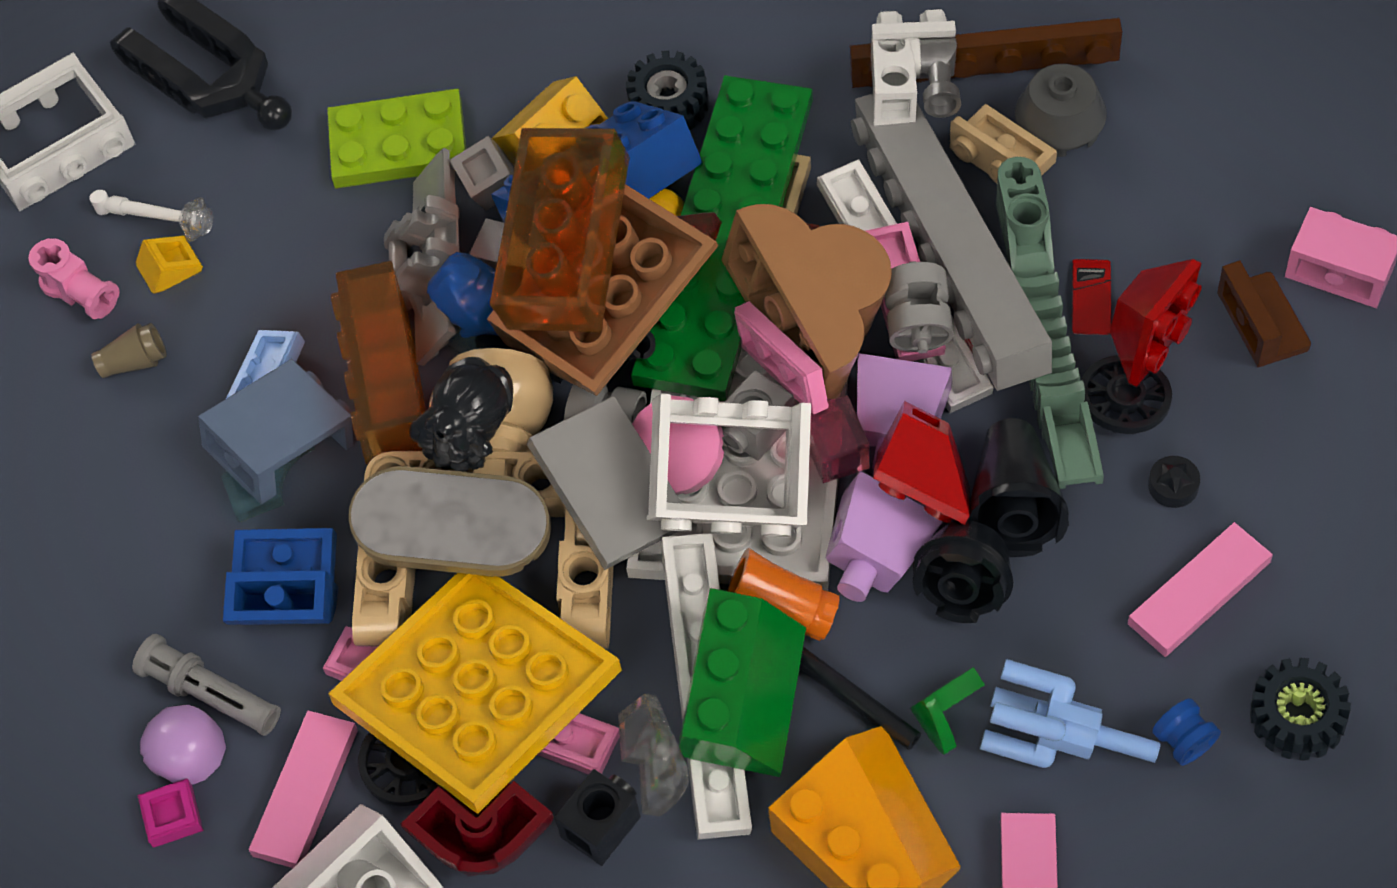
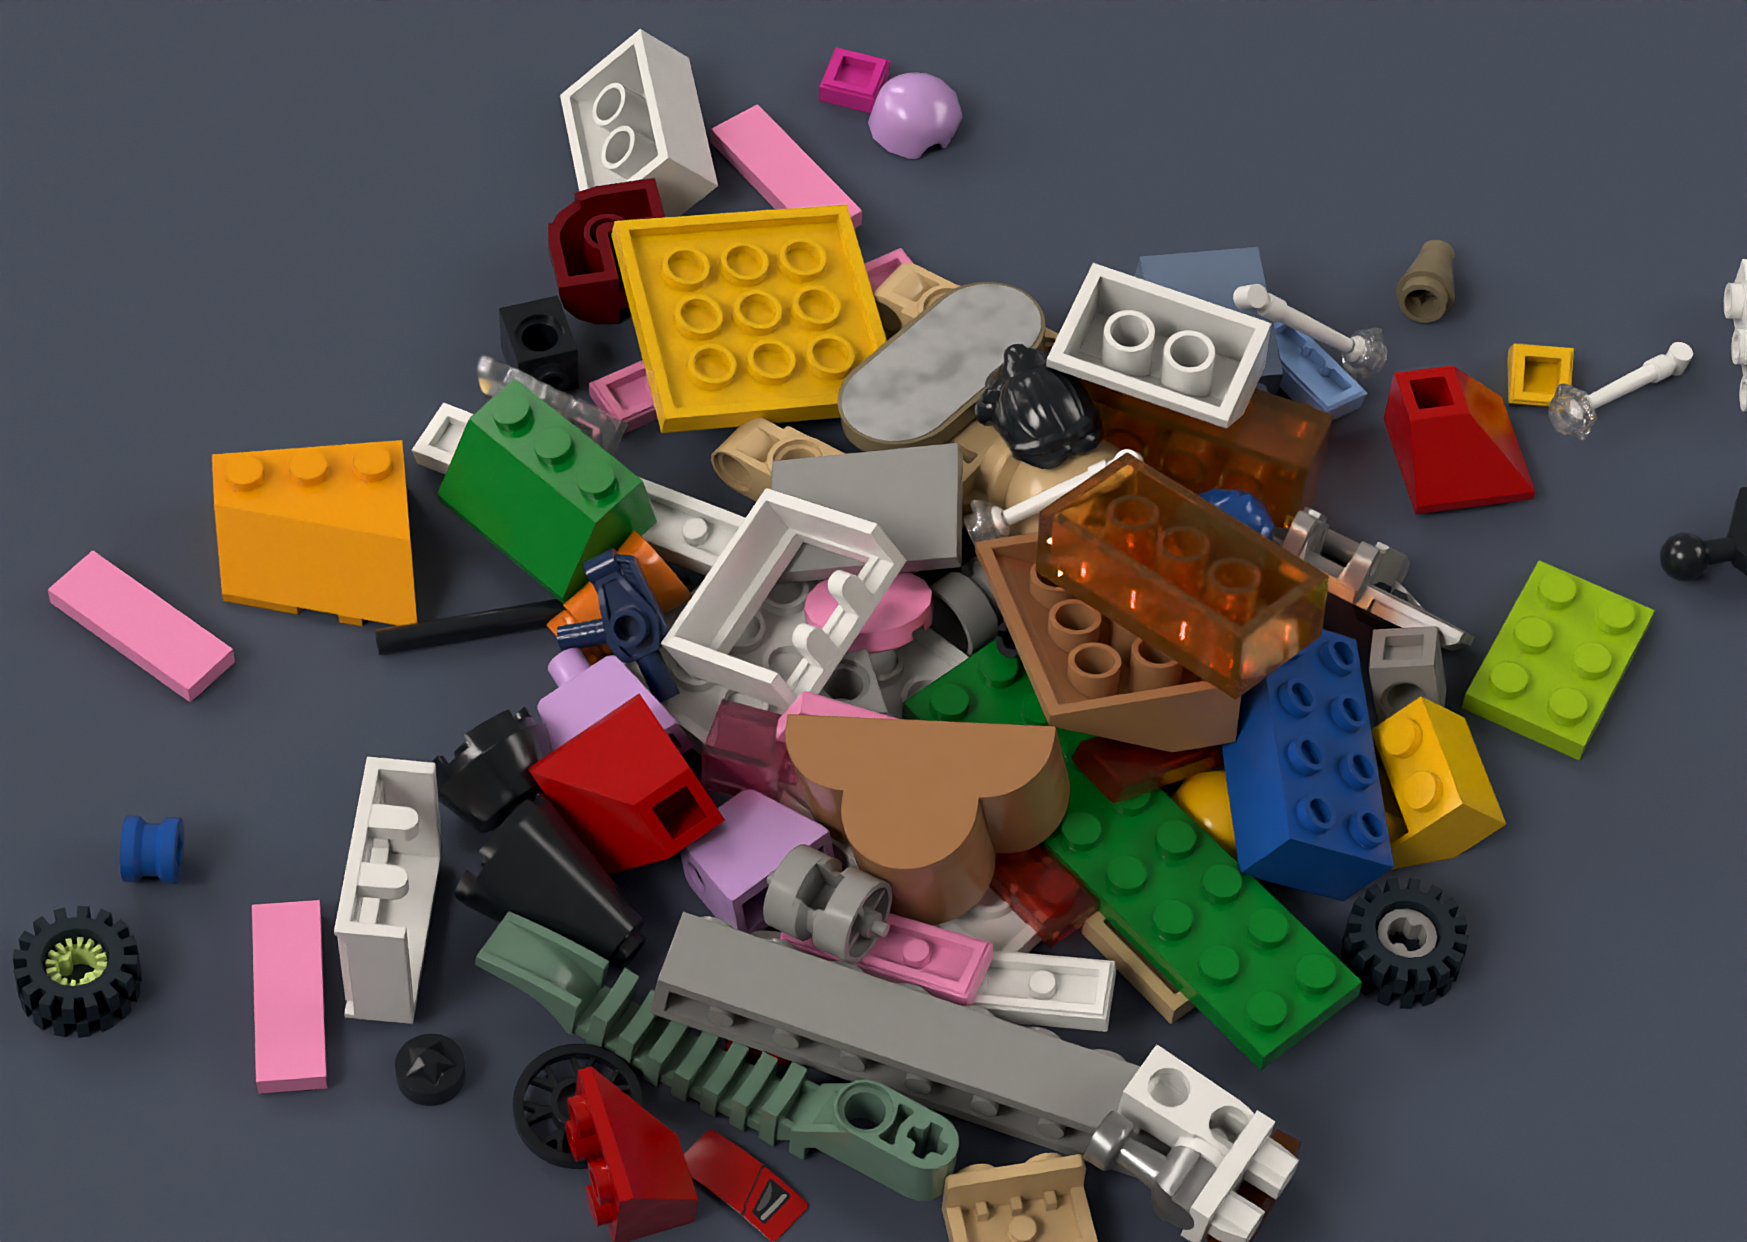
camera: 115 degrees right, 5 degrees down
(67, 278) = (1572, 274): bright pink connector -> none
(188, 669) = (982, 147): light grey pin -> none
(226, 352) = (1361, 353): none -> piece
(272, 262) = (1454, 441): none -> red slope
(282, 577) = (1020, 242): blue brick -> none
(385, 350) = (1162, 346): none -> white slope
(564, 402) = (991, 522): none -> piece
(806, 553) = (629, 622): none -> dark blue piece
(930, 709) = (384, 674): green tile -> none
(1057, 723) = (269, 744): light blue plant -> none
(1115, 554) = (397, 884): none -> white window

